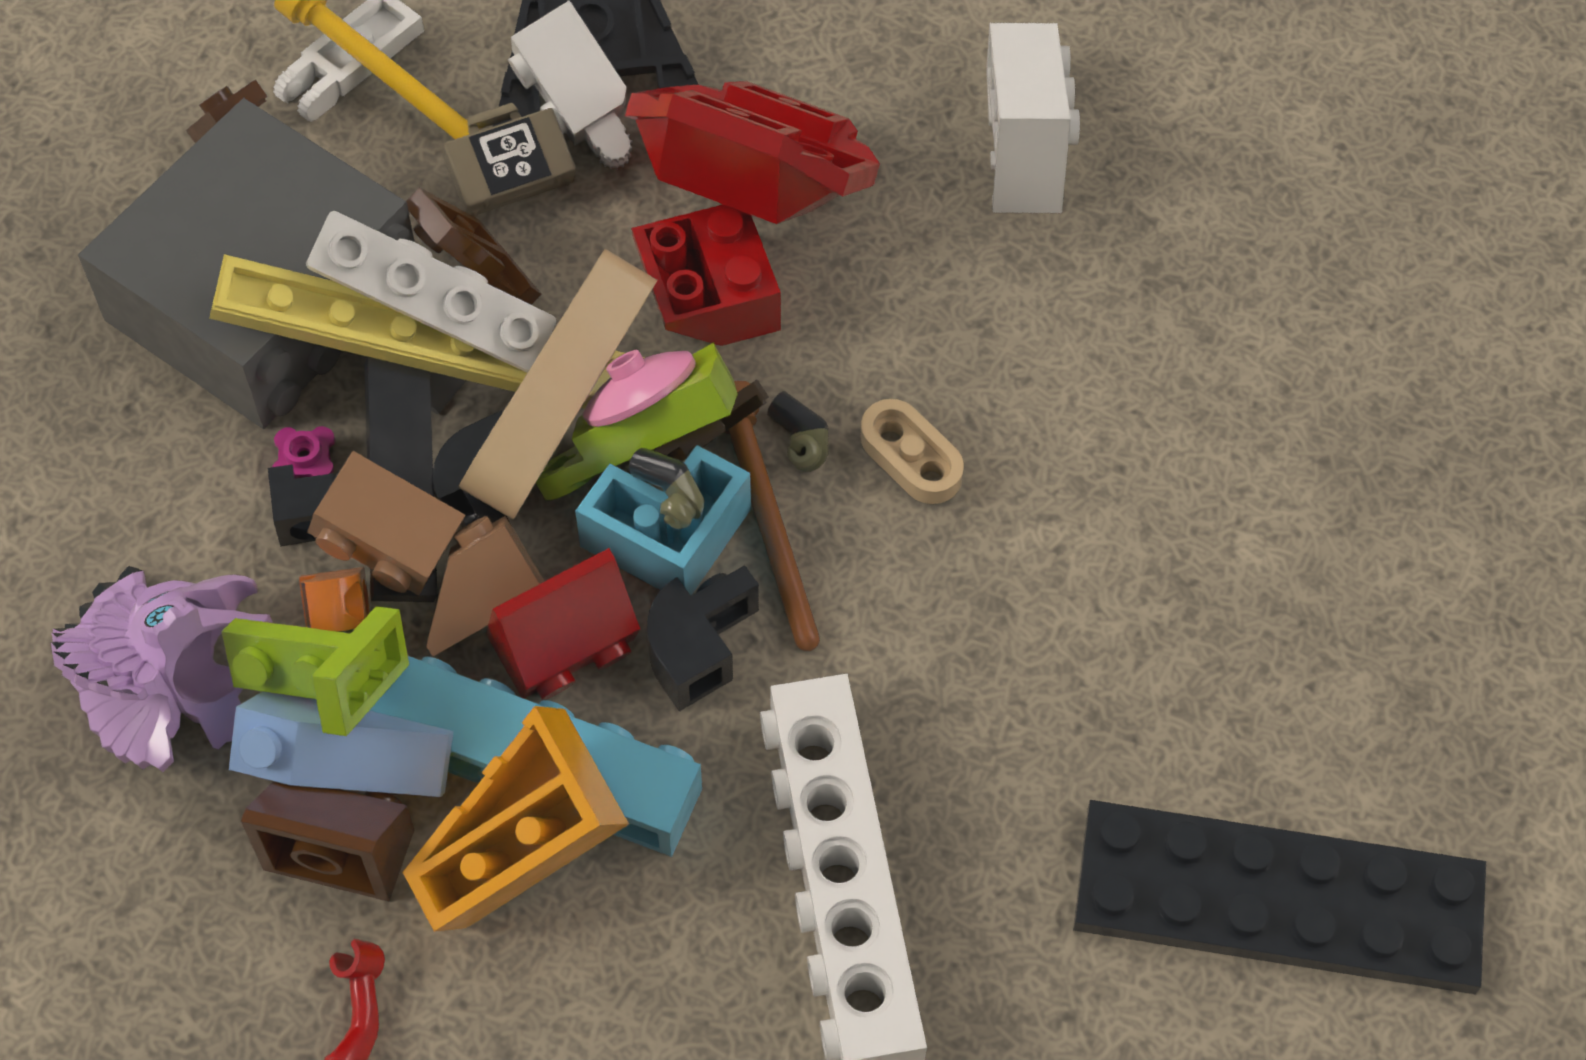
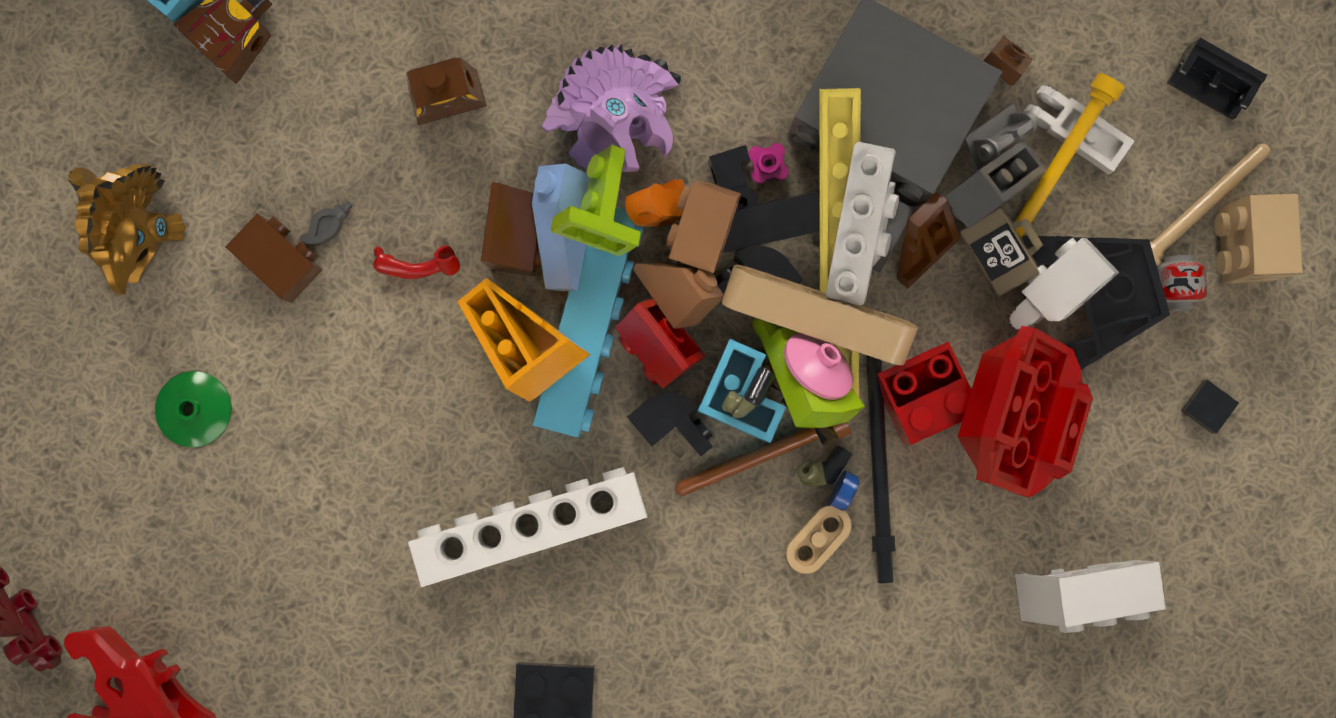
camera: 85 degrees right, 25 degrees up
(53, 915) = (444, 90): none -> reddish brown torso
(339, 133) = (999, 135): none -> light grey hinge
(410, 137) = (994, 184): none -> dark grey brick
(840, 404) = (844, 491): none -> blue tile
(926, 367) = (883, 542): none -> black bar

